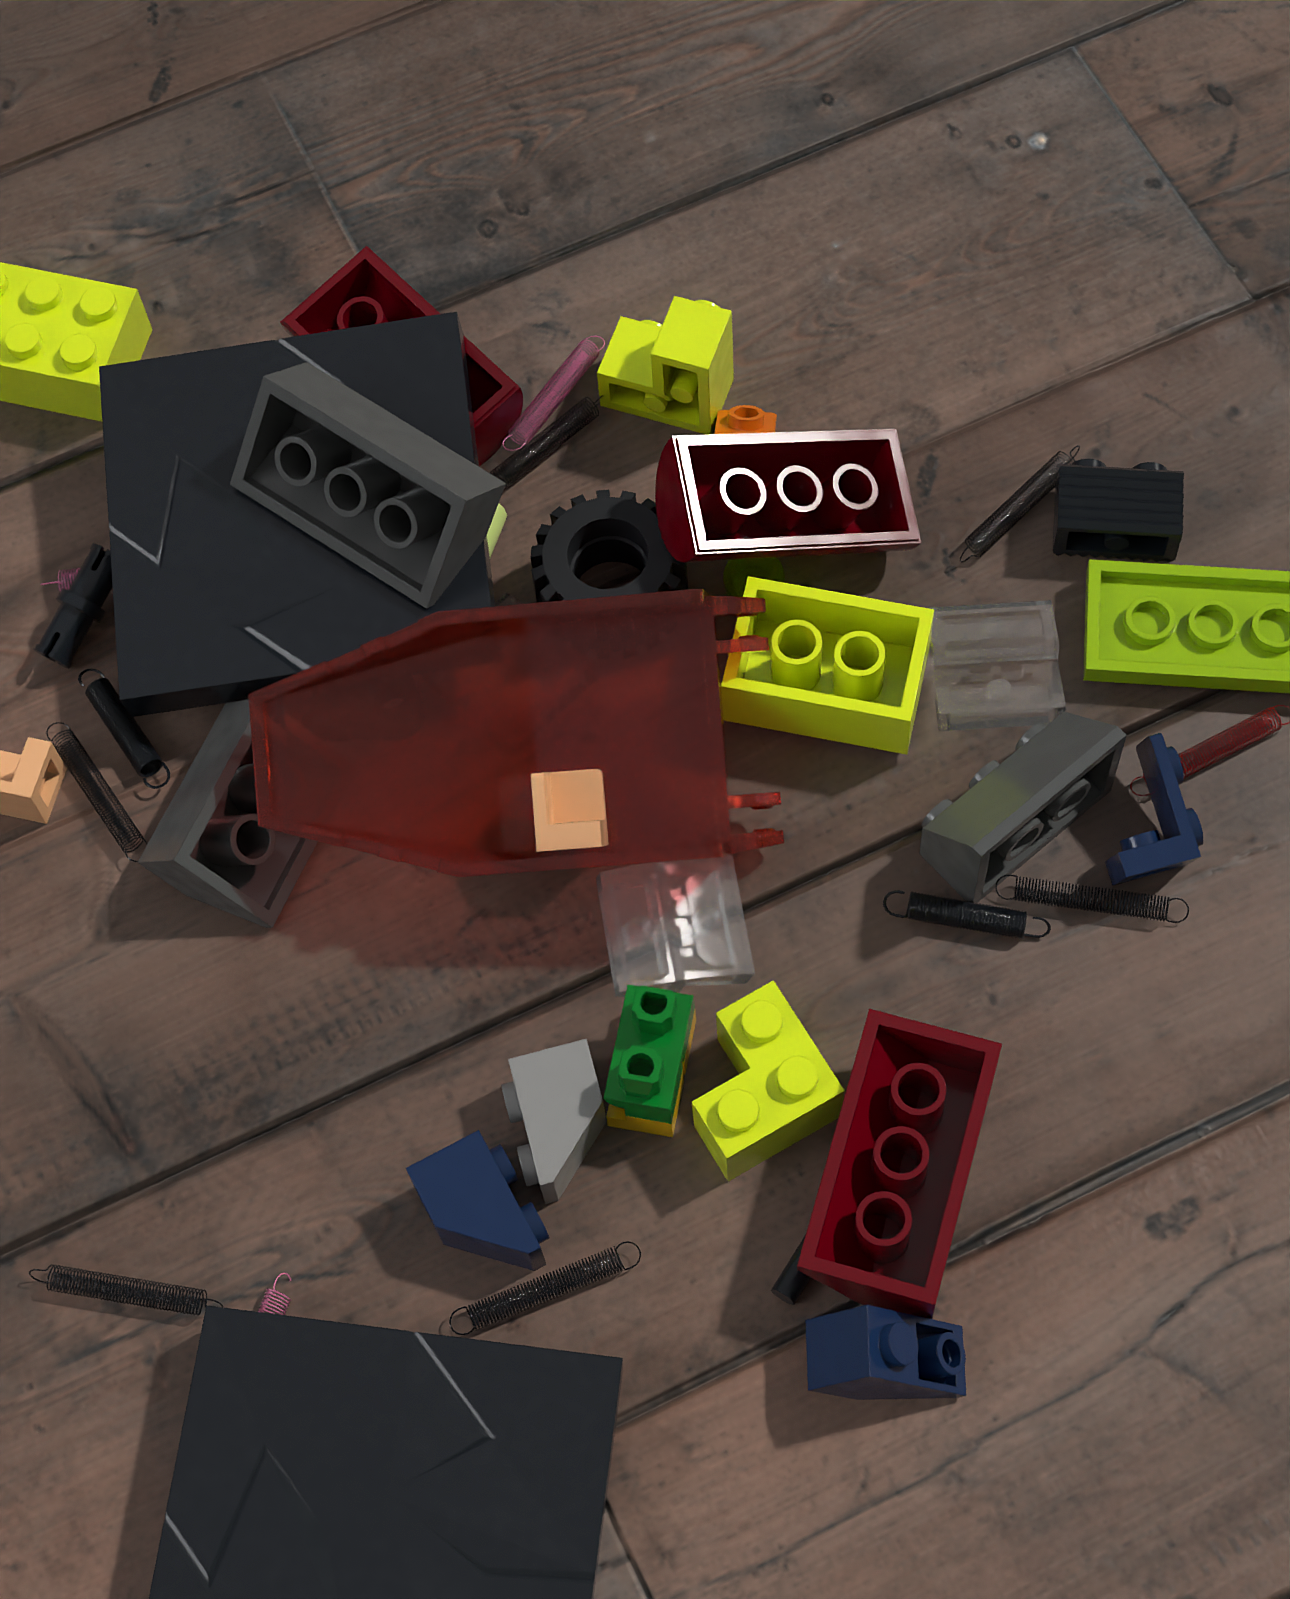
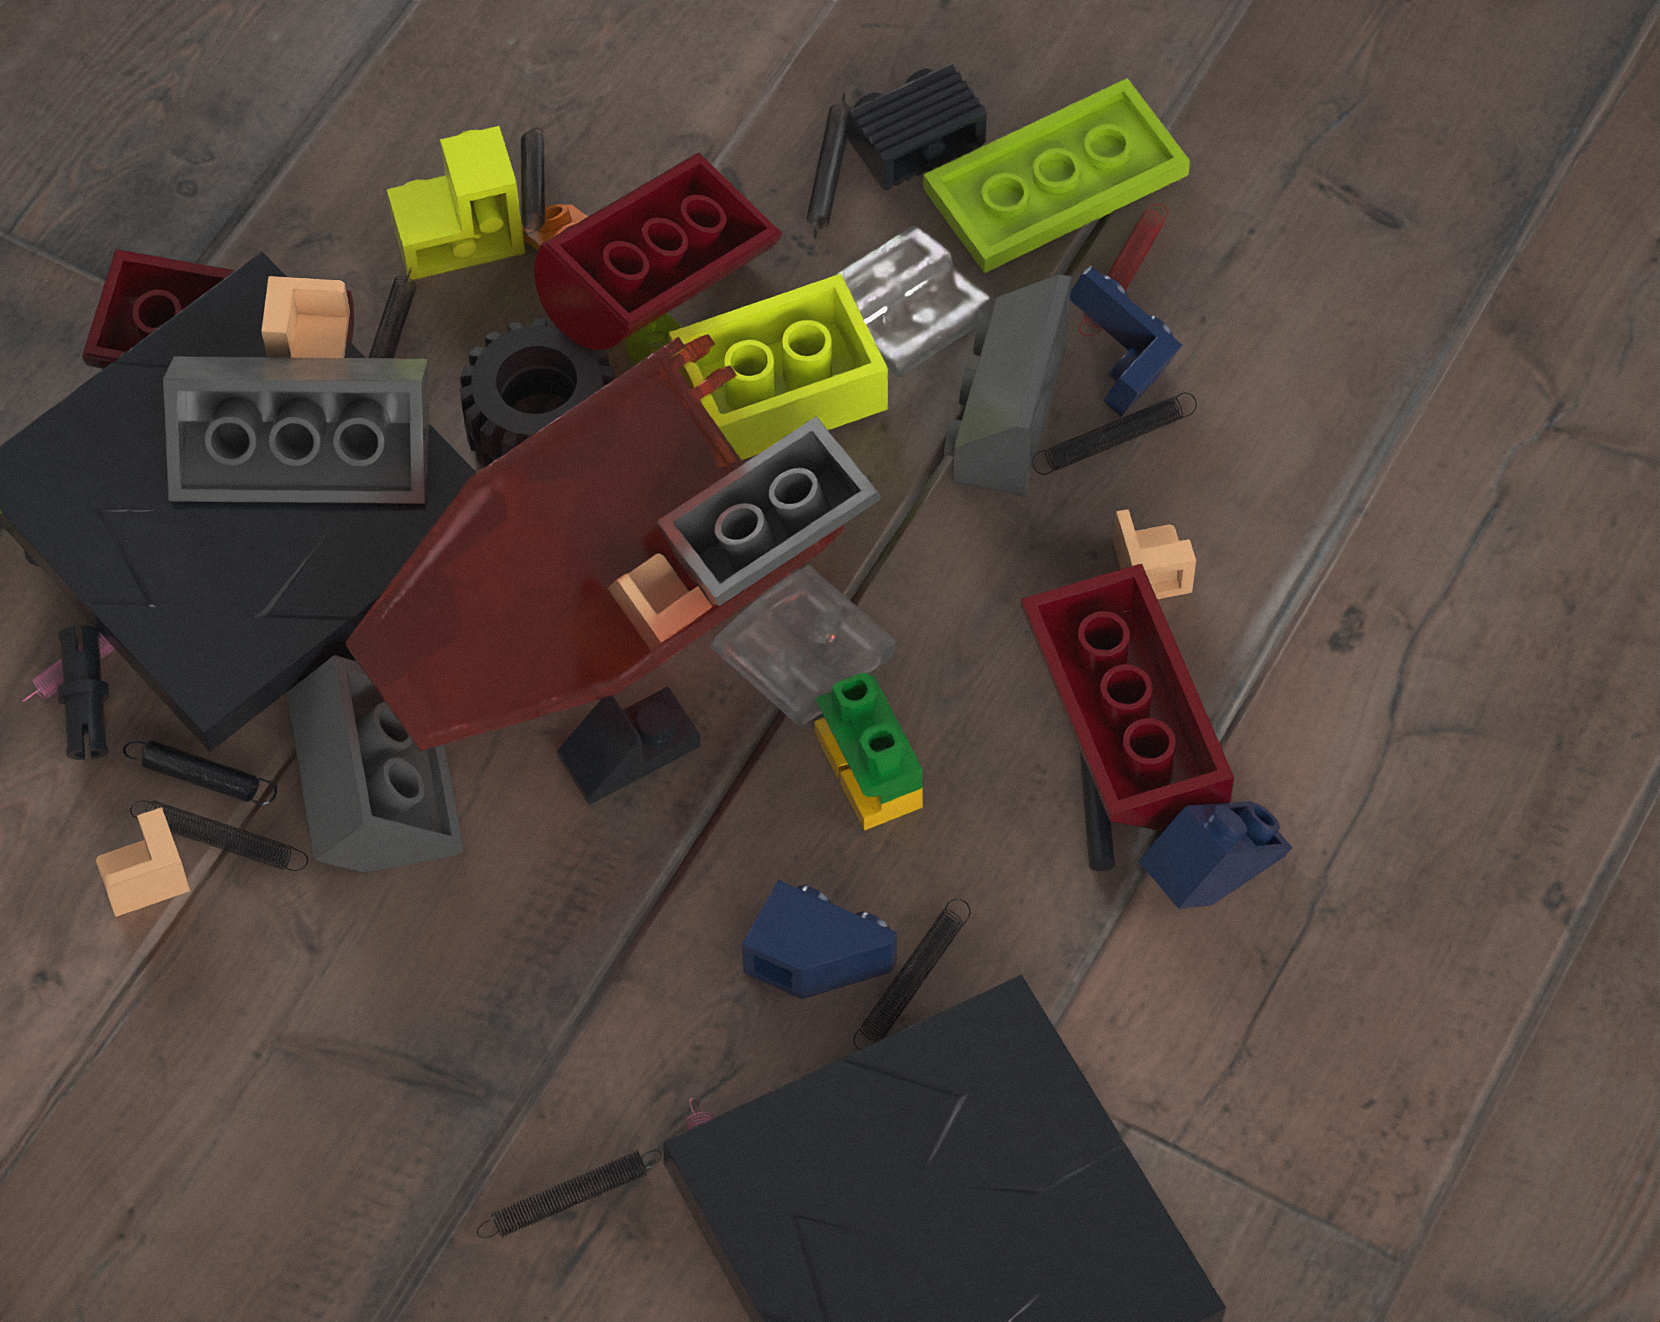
camera: 40 degrees left, 5 degrees down
(436, 392) = (305, 318): none -> light nougat panel
(469, 921) = (626, 744): none -> black slope
(552, 392) = (365, 268): bright pink piece -> none
(561, 1113) = (821, 835): light grey slope -> none
(695, 793) = (766, 512): none -> dark grey slope
(751, 390) = (539, 177): none -> black piece
(780, 1087) = (982, 706): neon yellow brick -> none
(966, 915) = (1027, 502): black piece -> none
(1037, 1038) = (1165, 559): none -> light nougat panel

